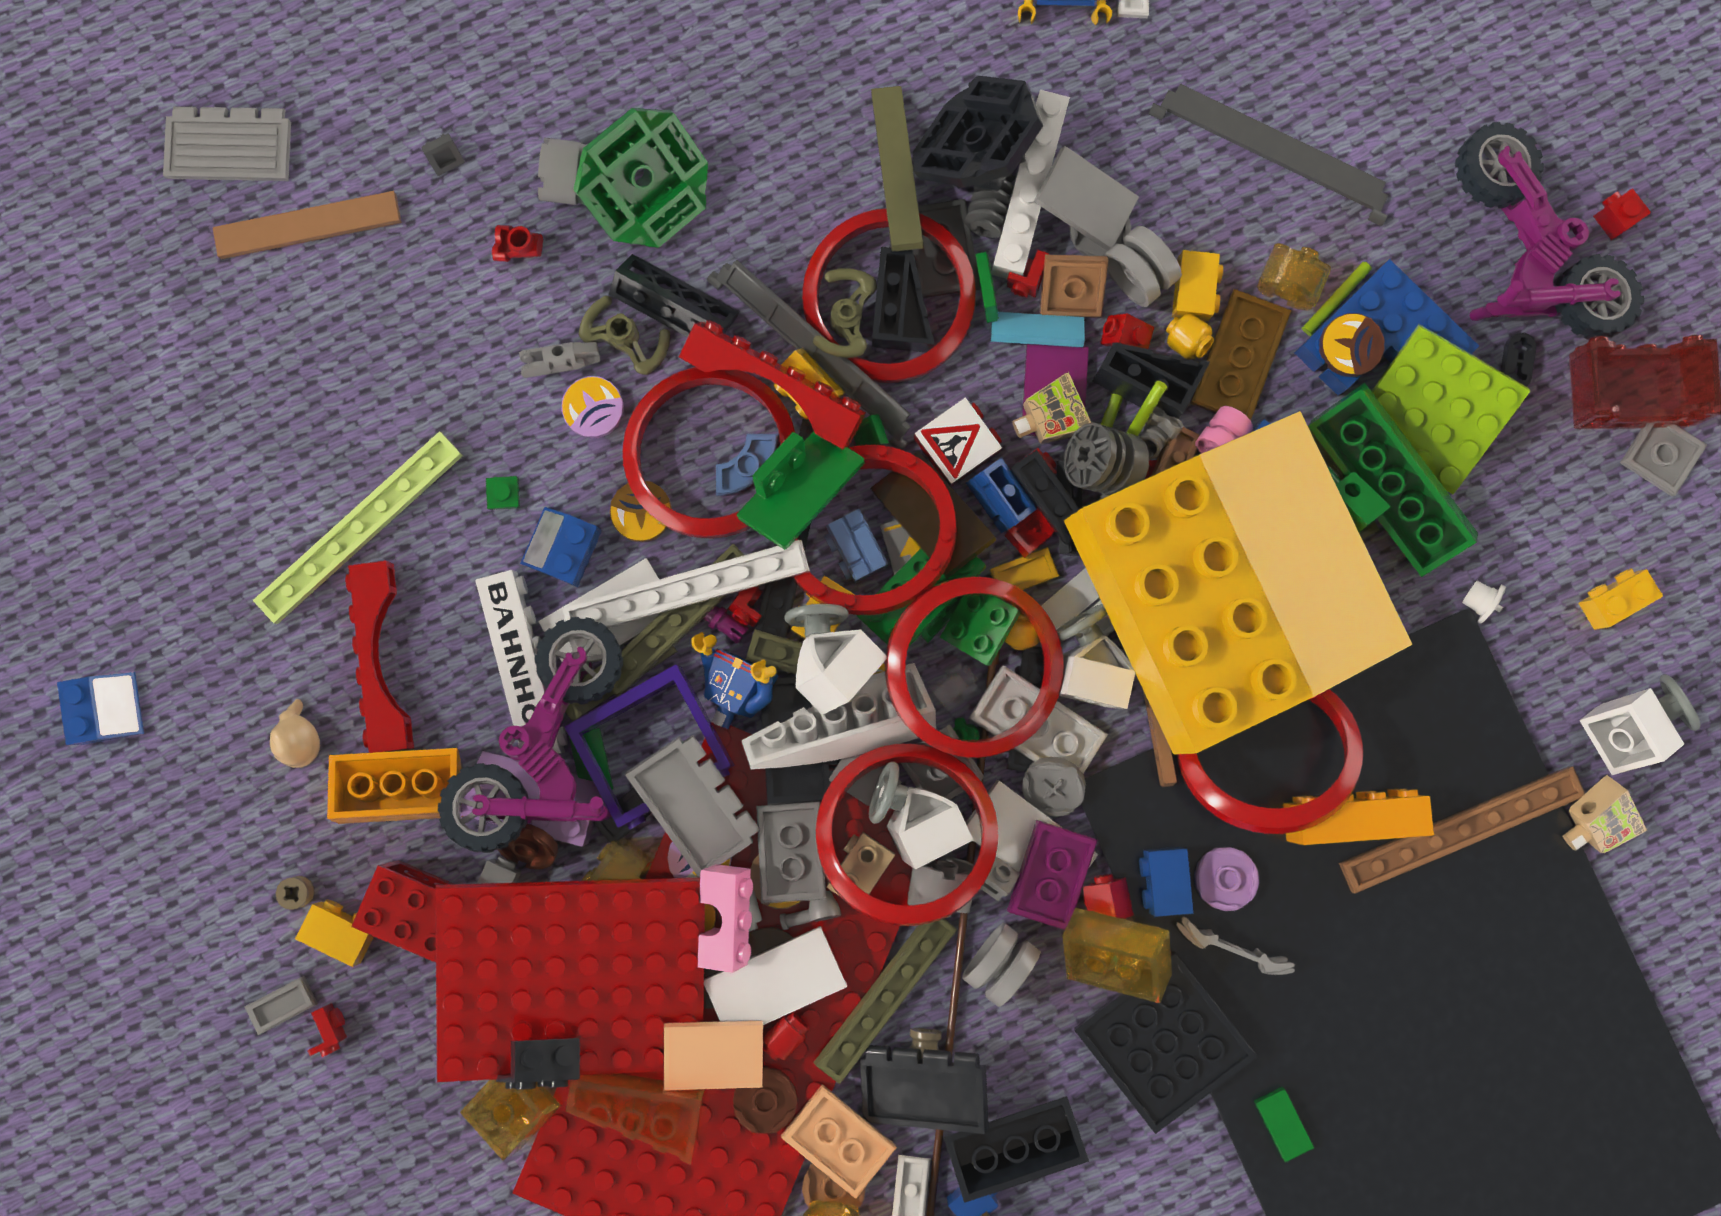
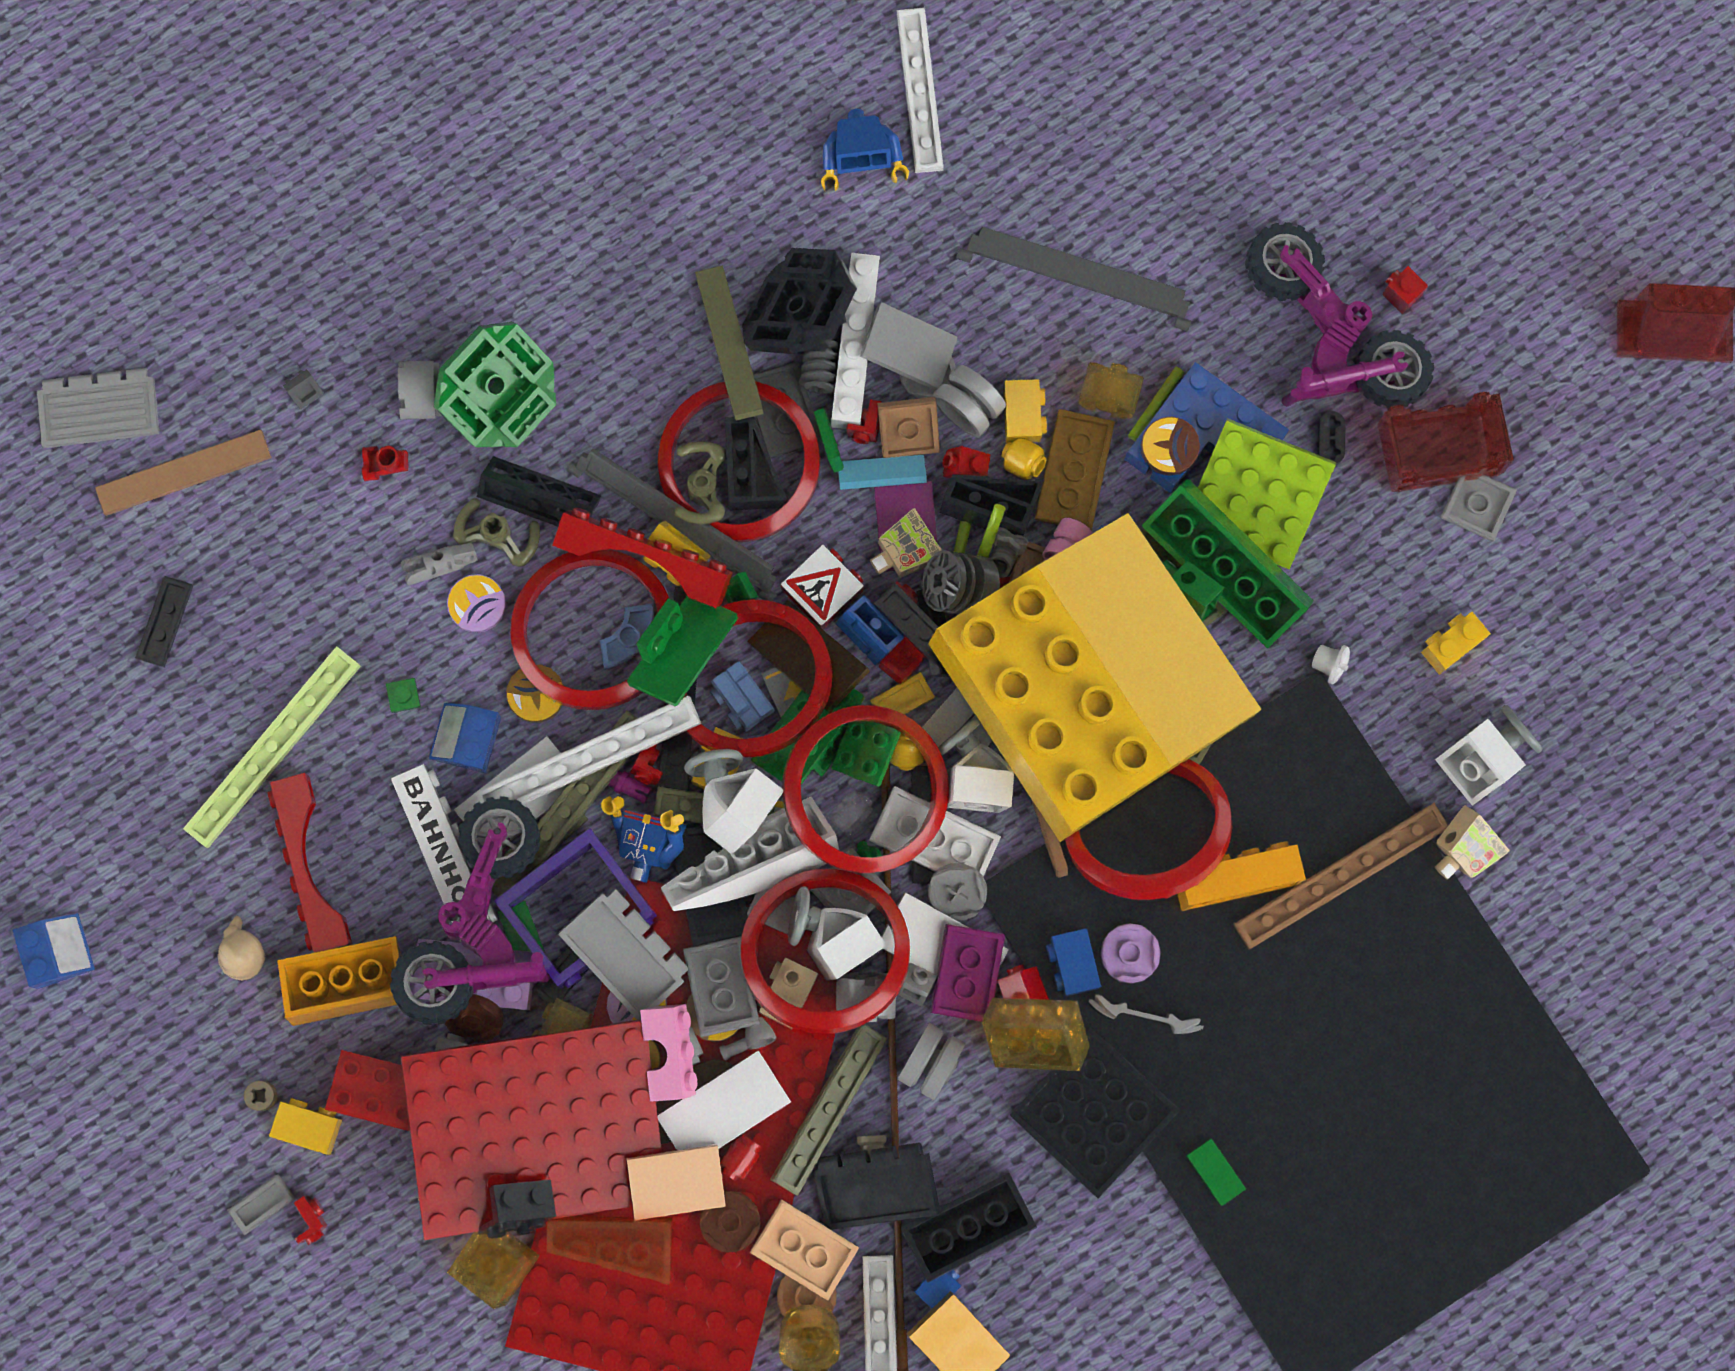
camera: 10 degrees left, 5 degrees down
(265, 379) = (164, 621): none -> black tile

